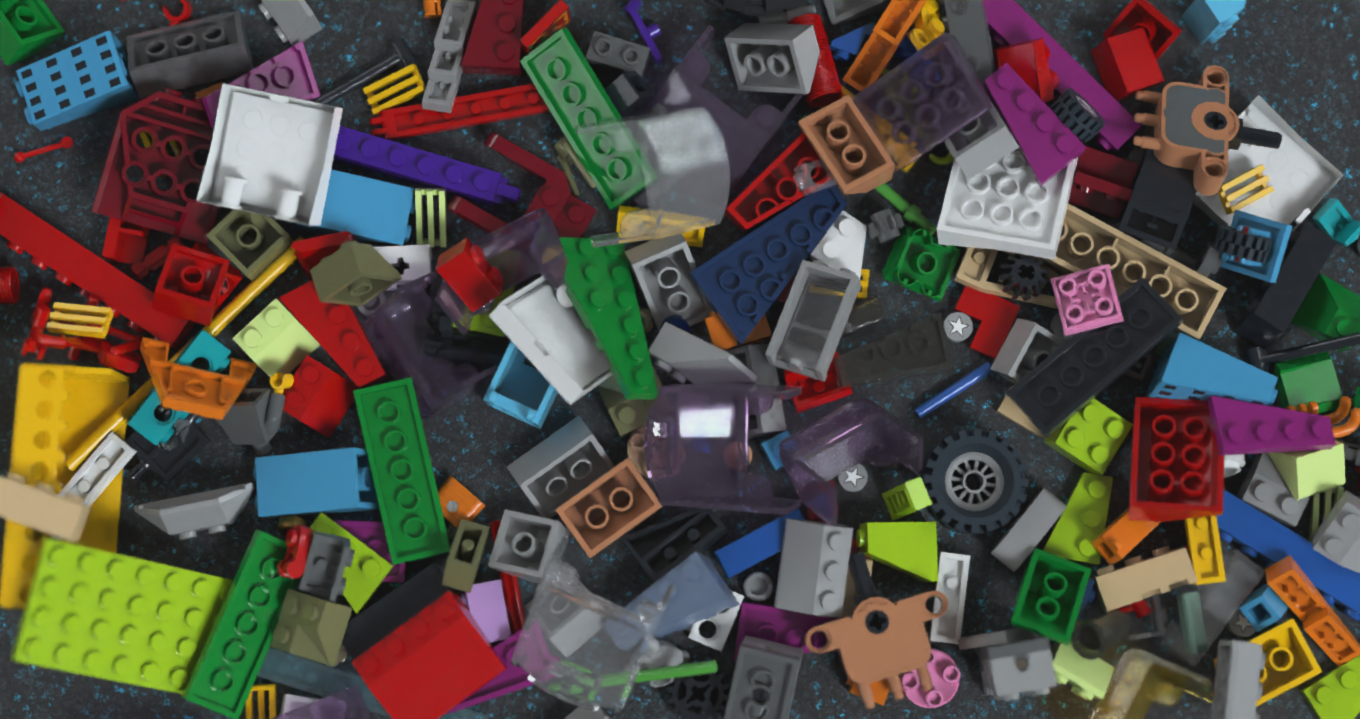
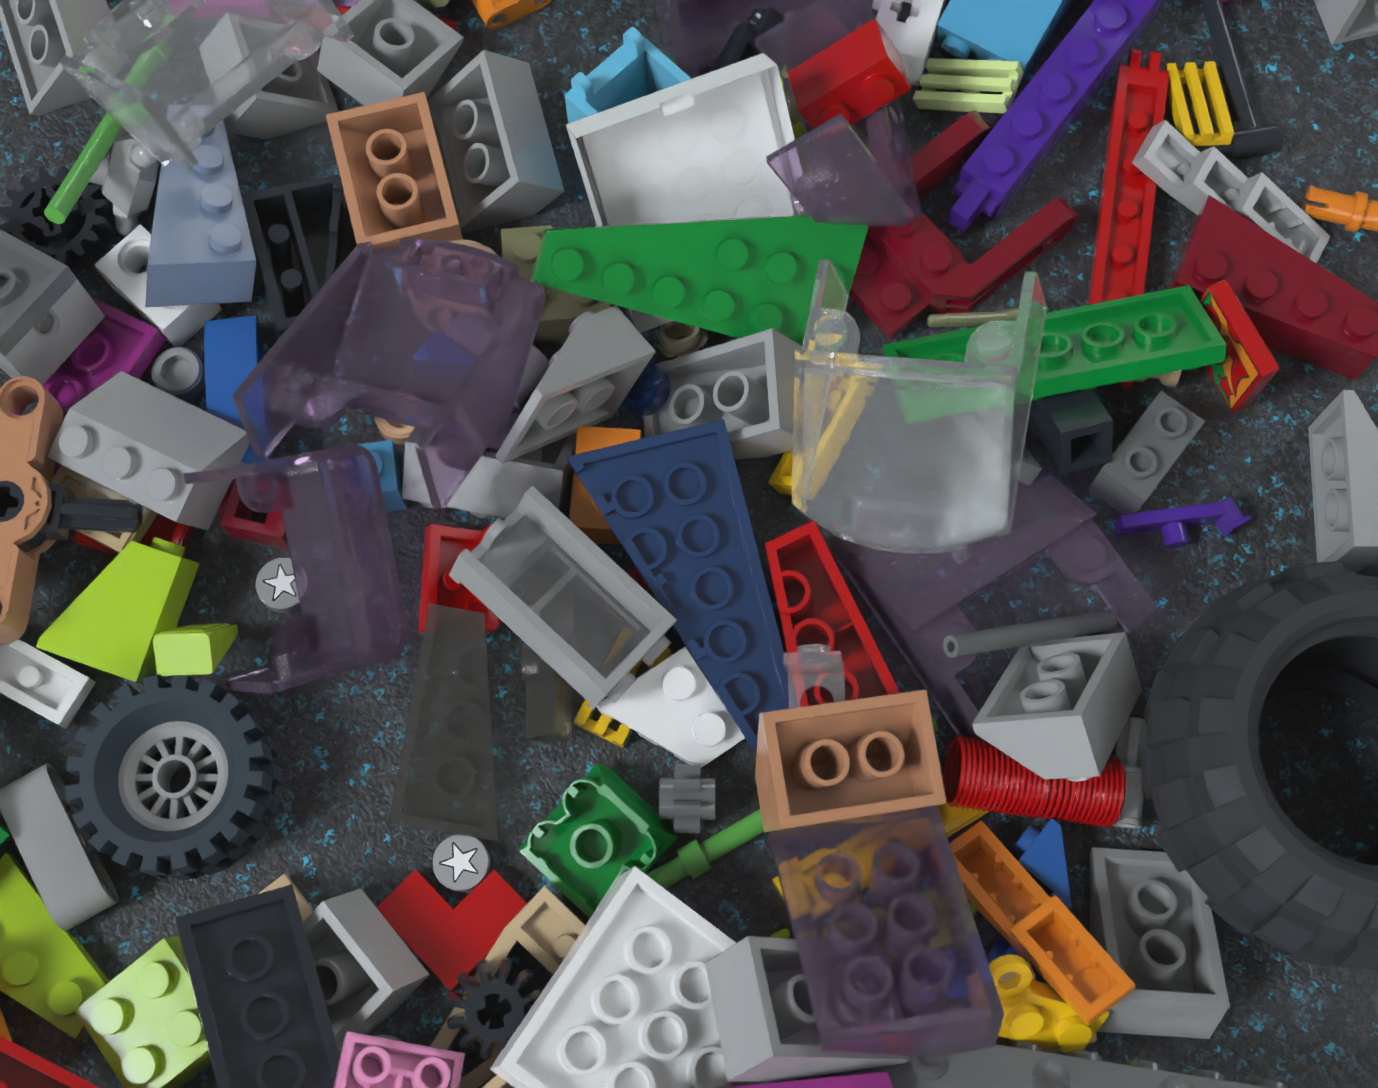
camera: 115 degrees right, 10 degrees down
(742, 83) = (1028, 633): none -> dark grey piece
(953, 390) = (355, 812): blue bar -> none

